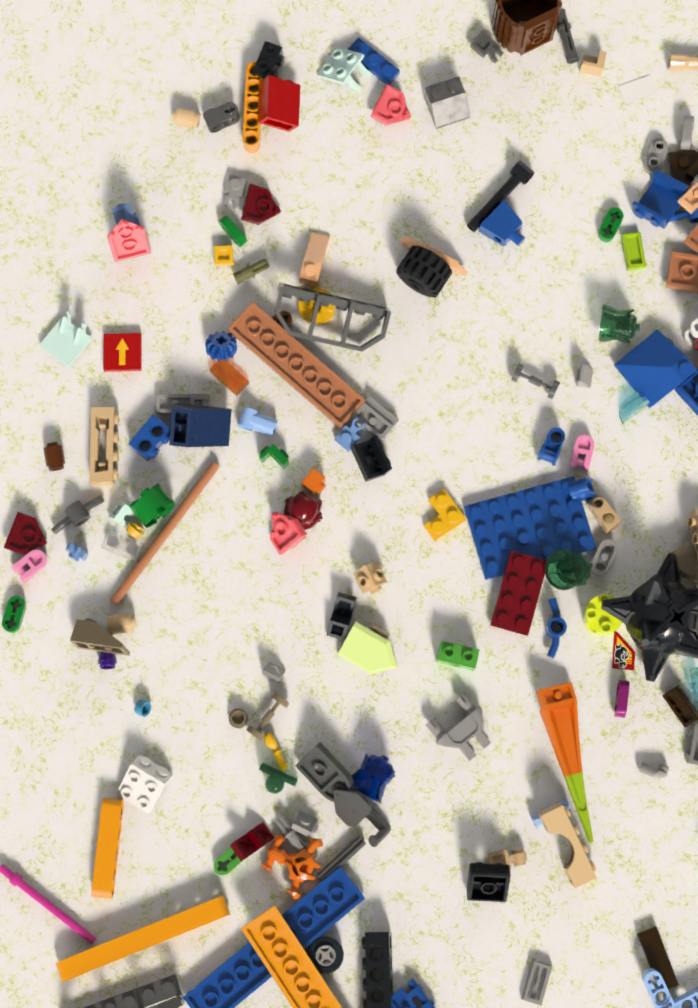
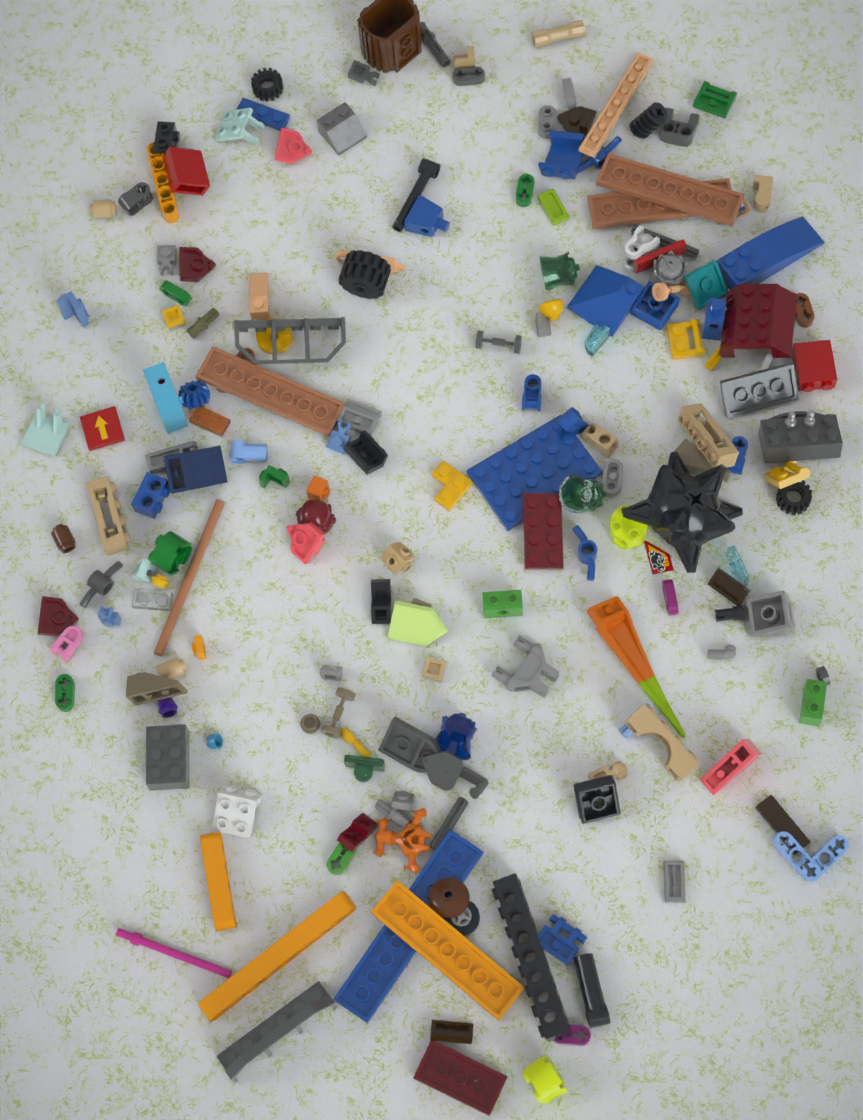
camera: 10 degrees left, 10 degrees down
(93, 711) = (167, 757): none -> dark grey brick
(128, 241) = (79, 326): coral tile -> none
(153, 609) = (199, 647): none -> light orange plate
(190, 346) = (165, 397): none -> medium azure brick
(320, 945) = (451, 906): none -> reddish brown dish
(372, 701) = (434, 669): none -> tan plate
(387, 20) = (265, 76): none -> black tyre
(583, 445) = (562, 385): bright pink plate -> none
(591, 82) = (468, 76): none -> dark grey beam
(598, 363) = (551, 309): none -> yellow brick
(627, 887) = (731, 765): none -> coral slope
(679, 734) = (734, 613): none -> black pin

